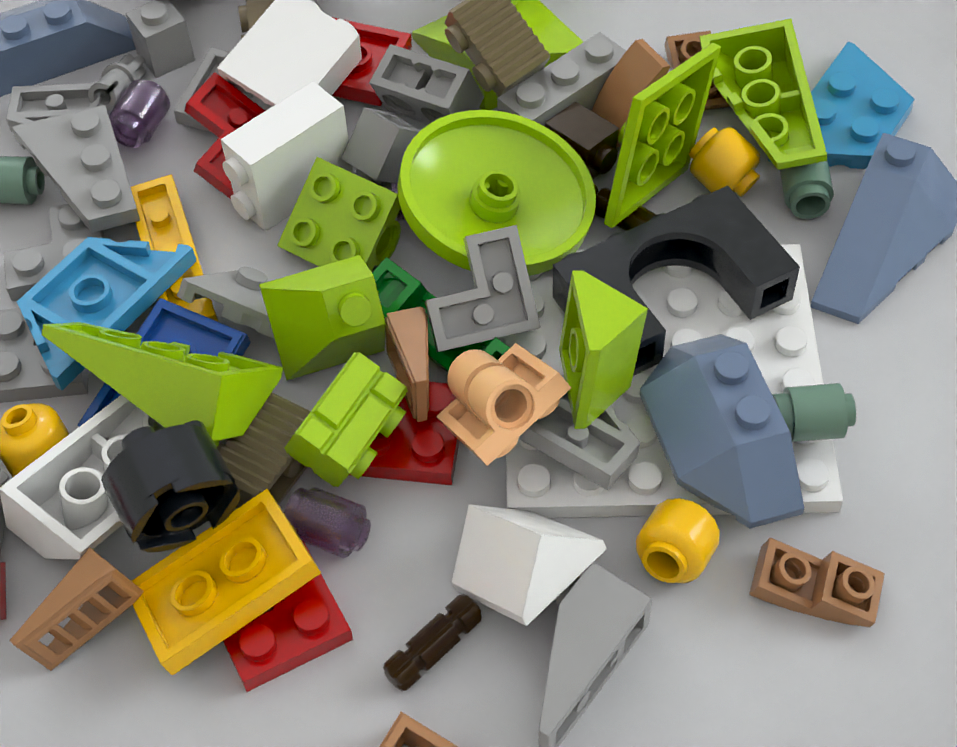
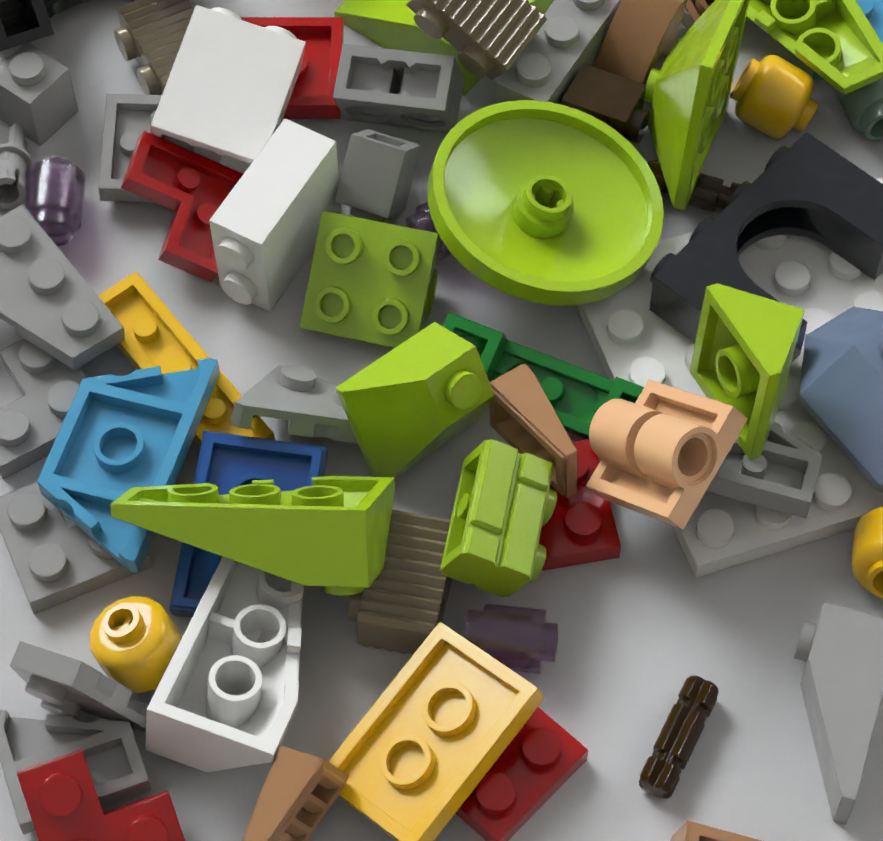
camera: 20 degrees left, 5 degrees up
(169, 485) = (348, 650): black brick -> none
(501, 297) = (606, 333): light grey plate -> none
(519, 560) = (742, 622): white slope -> none

